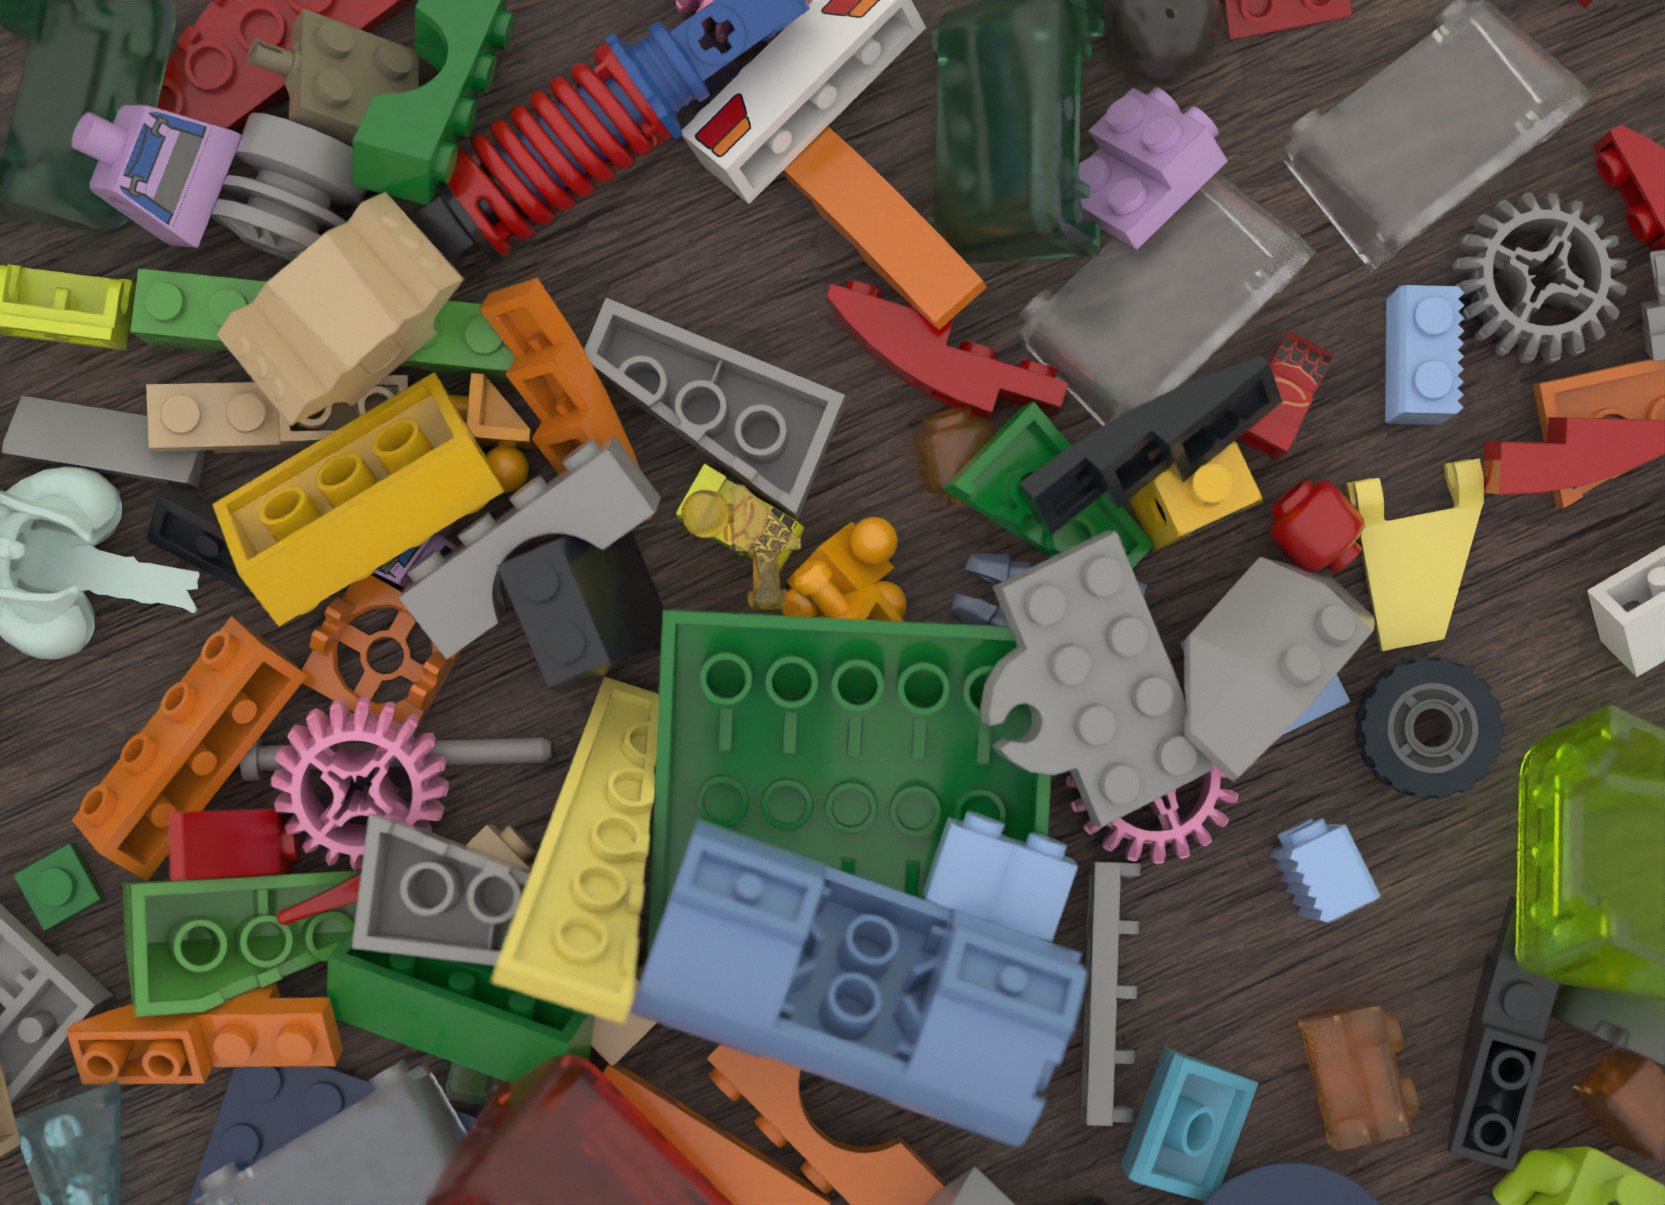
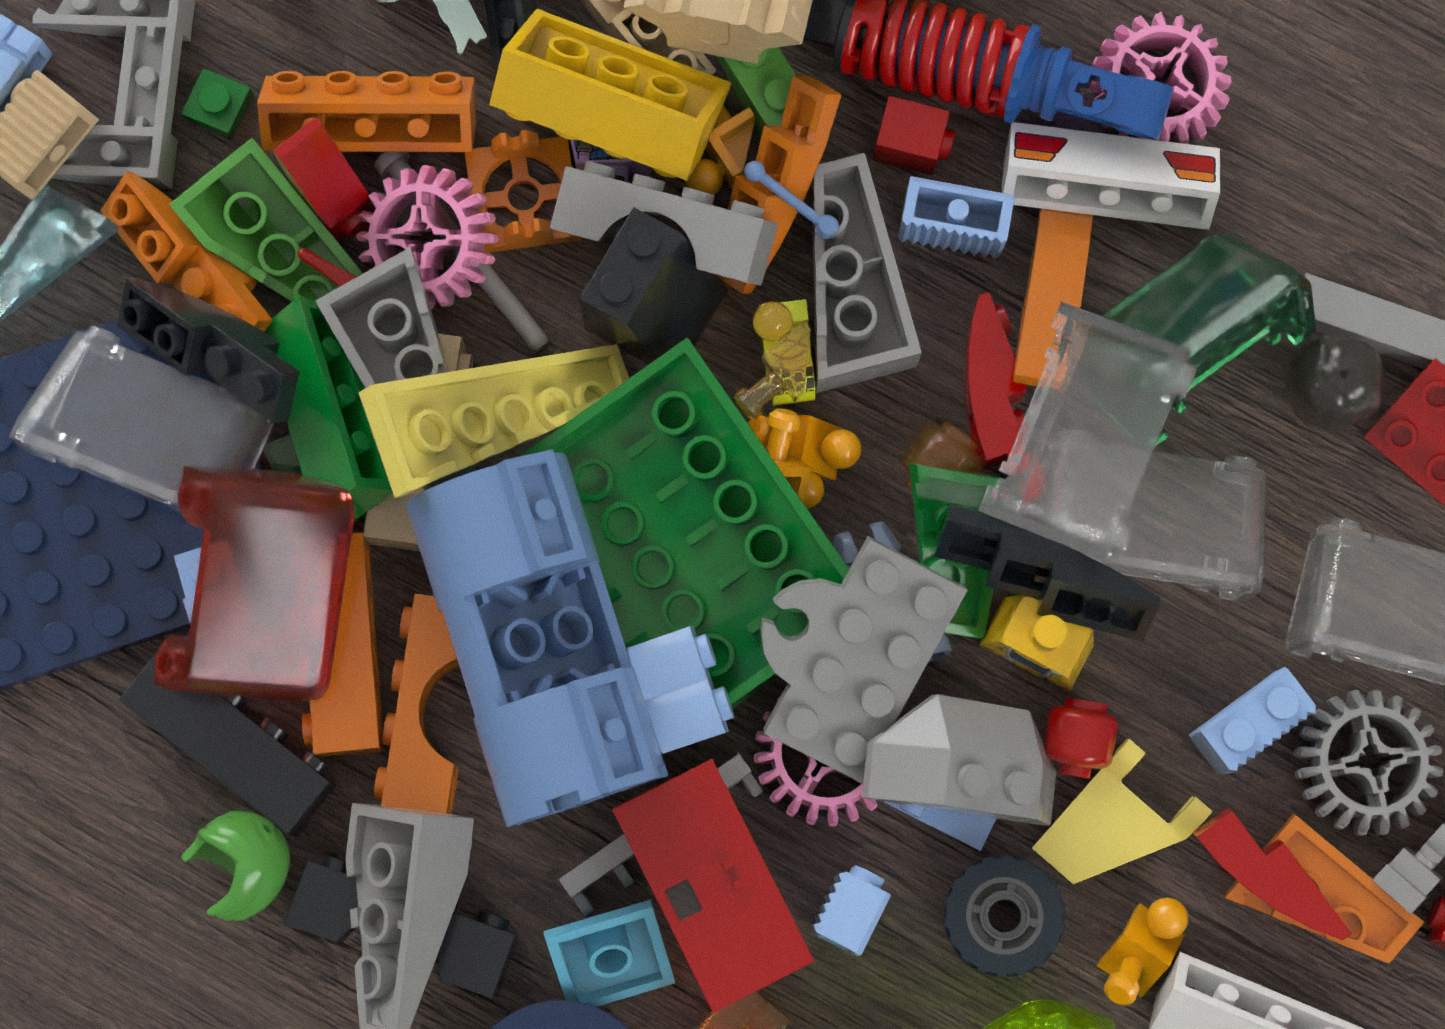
camera: 50 degrees right, 5 degrees down
(300, 1079) = (211, 341): none -> black slope
(618, 235) = (913, 136): none -> red brick
(650, 392) = (825, 225): none -> medium blue hinge
(731, 257) = (956, 217): none -> light blue brick
(1059, 303) = (1089, 432): none -> clear windscreen
(1147, 164) = (1231, 440): lavender plate -> none
(1213, 987) = (713, 885): none -> red brick
(1298, 372) = (1164, 648): red leg -> none
(1556, 622) = (1143, 949): none -> light orange piece

